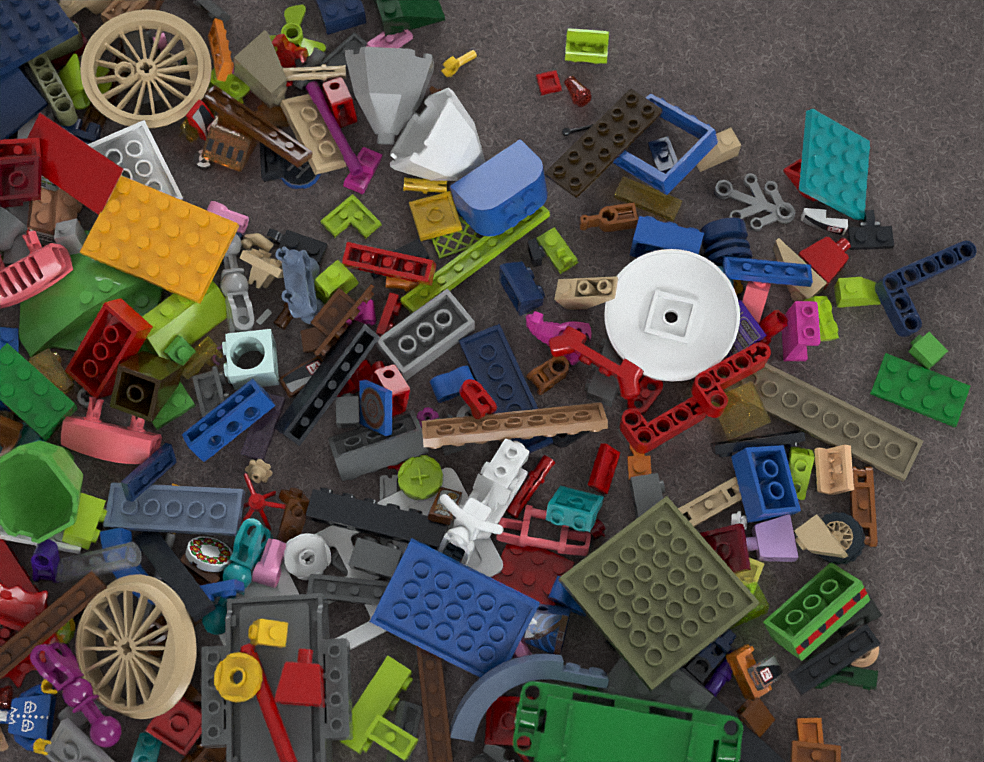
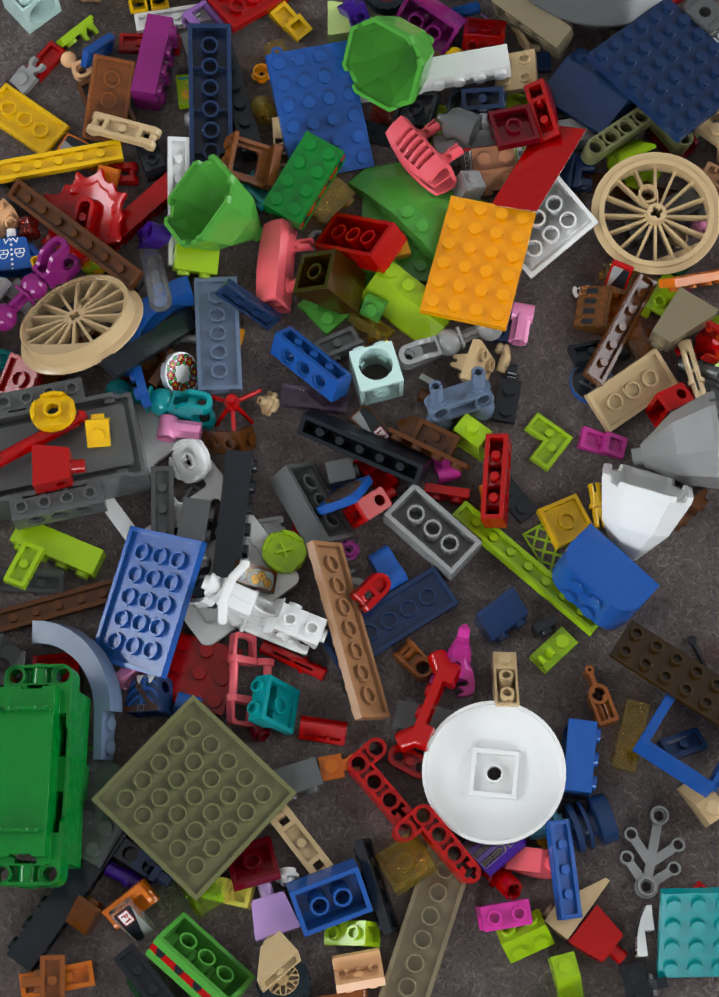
camera: 80 degrees right, 0 degrees up
(348, 155) = (610, 424): magenta piece -> none

